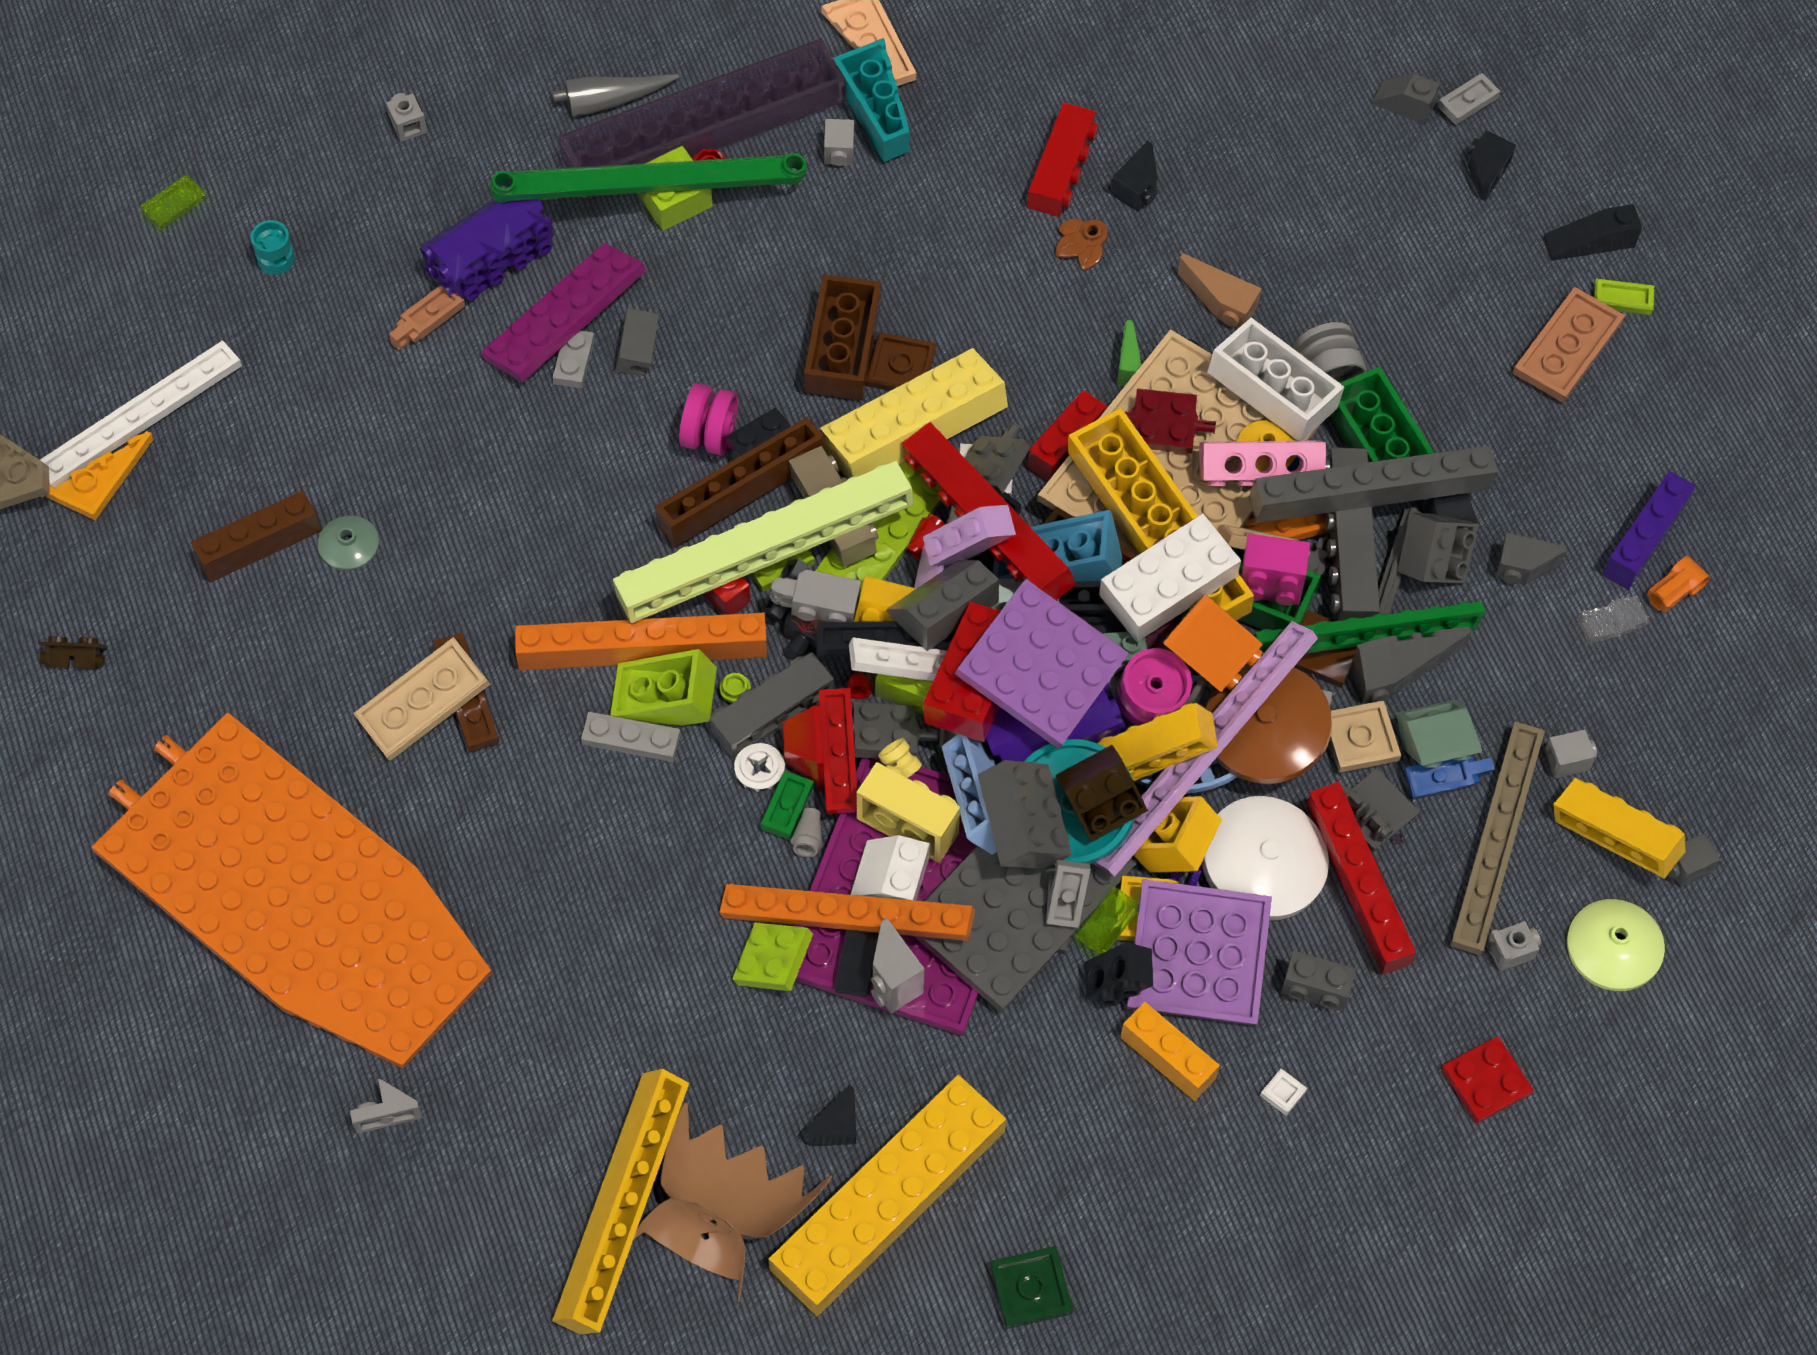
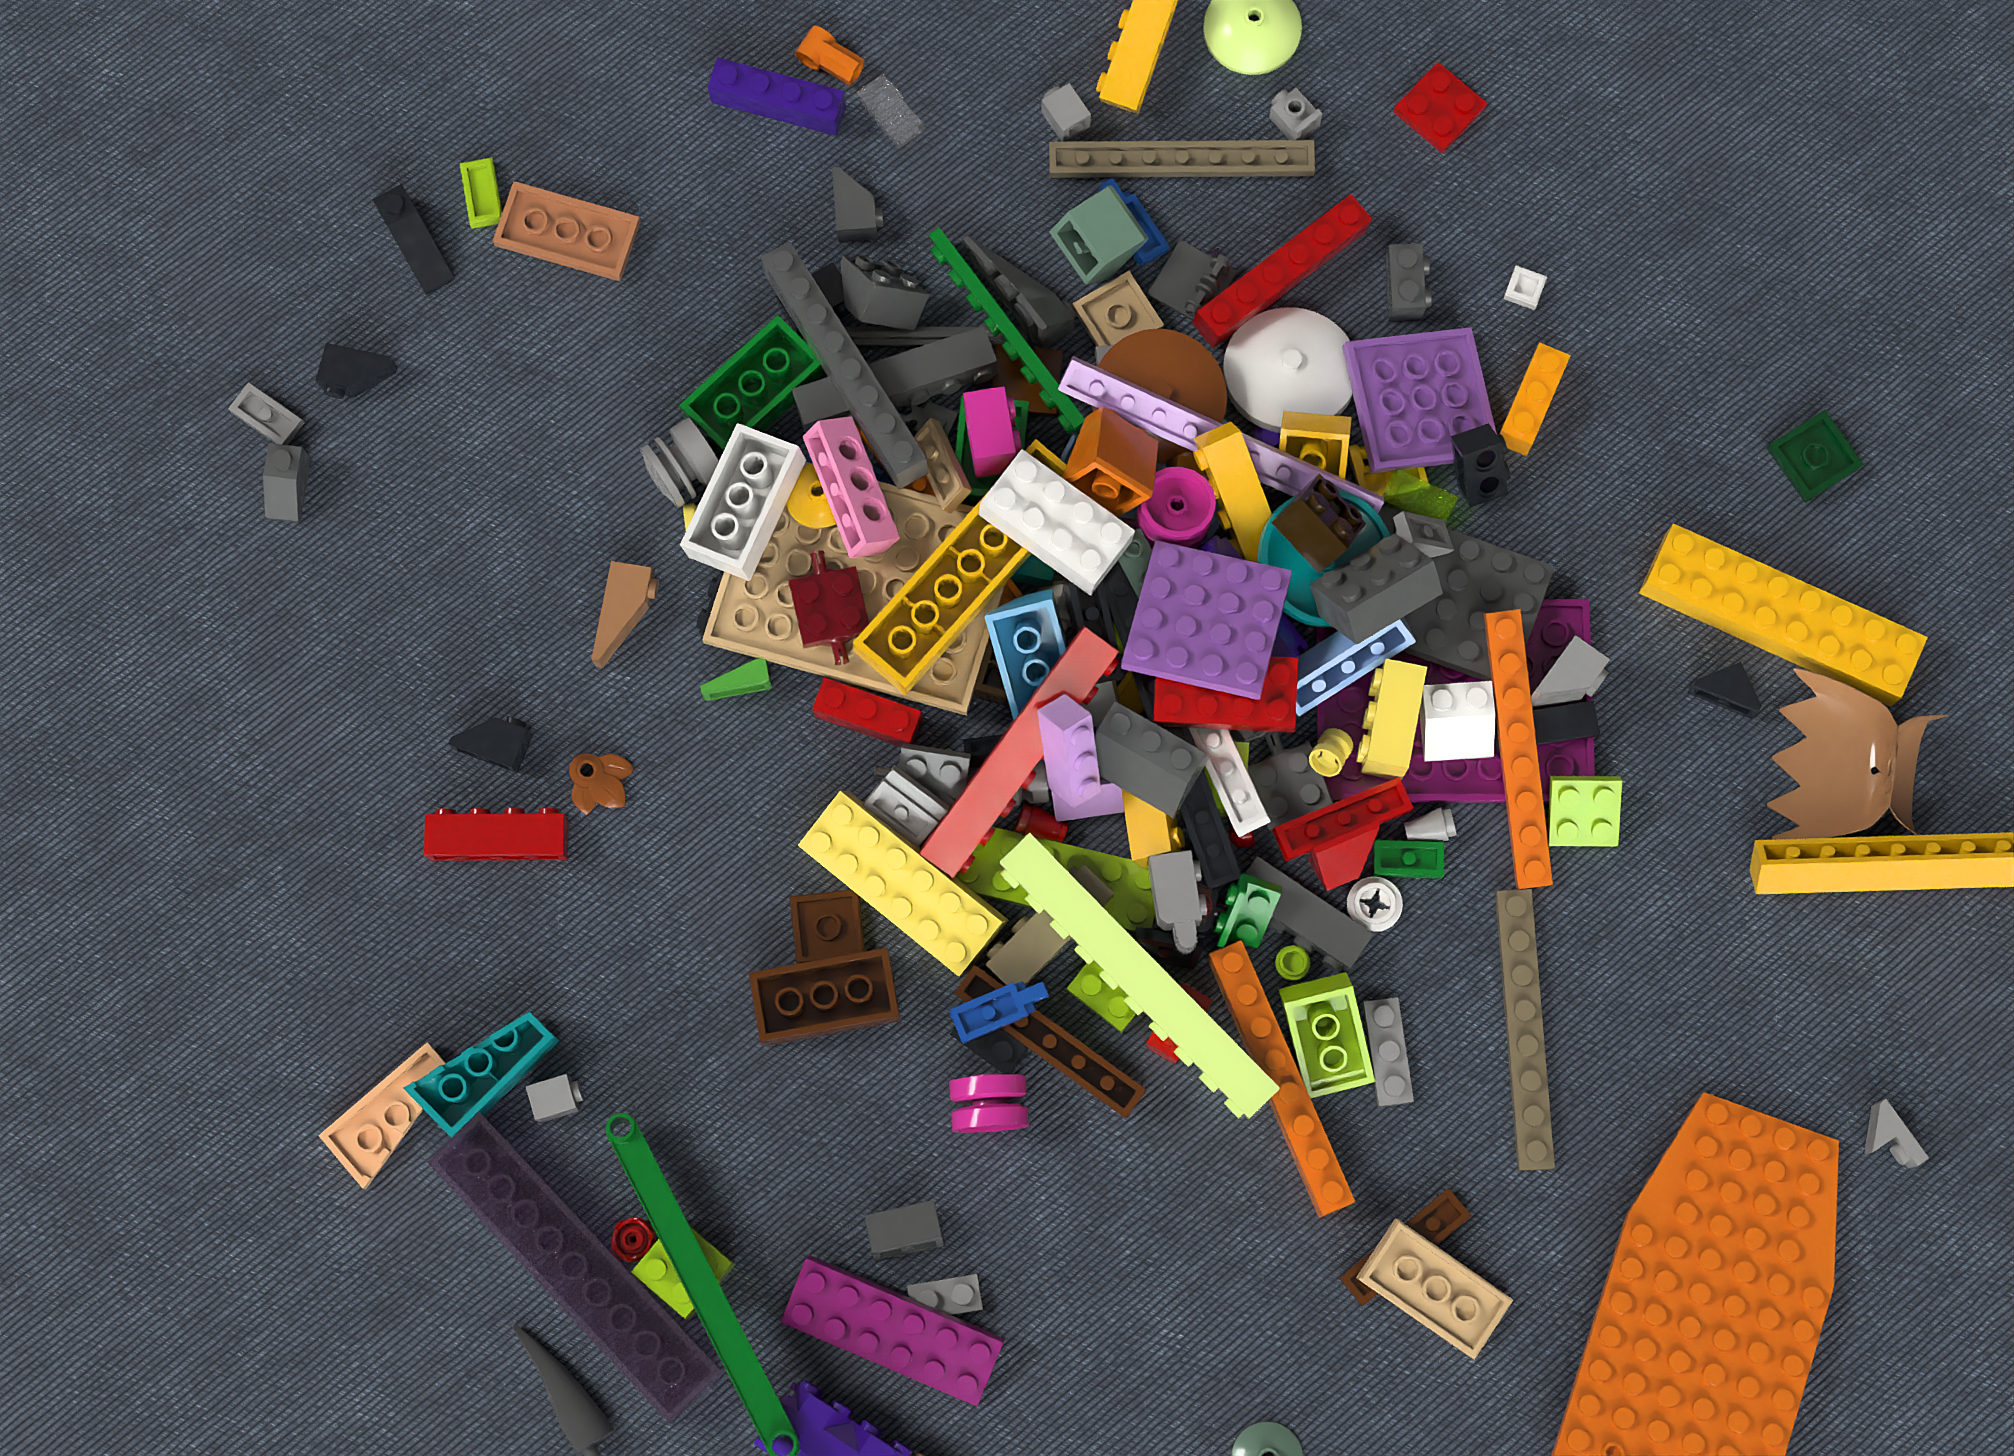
camera: 105 degrees left, 15 degrees up
(605, 849) = (1524, 1030): none -> dark tan plate
(779, 435) = (996, 1009): none -> blue hinge
(789, 649) = (1248, 911): none -> green bracket
(978, 431) = (906, 806): none -> light grey plate

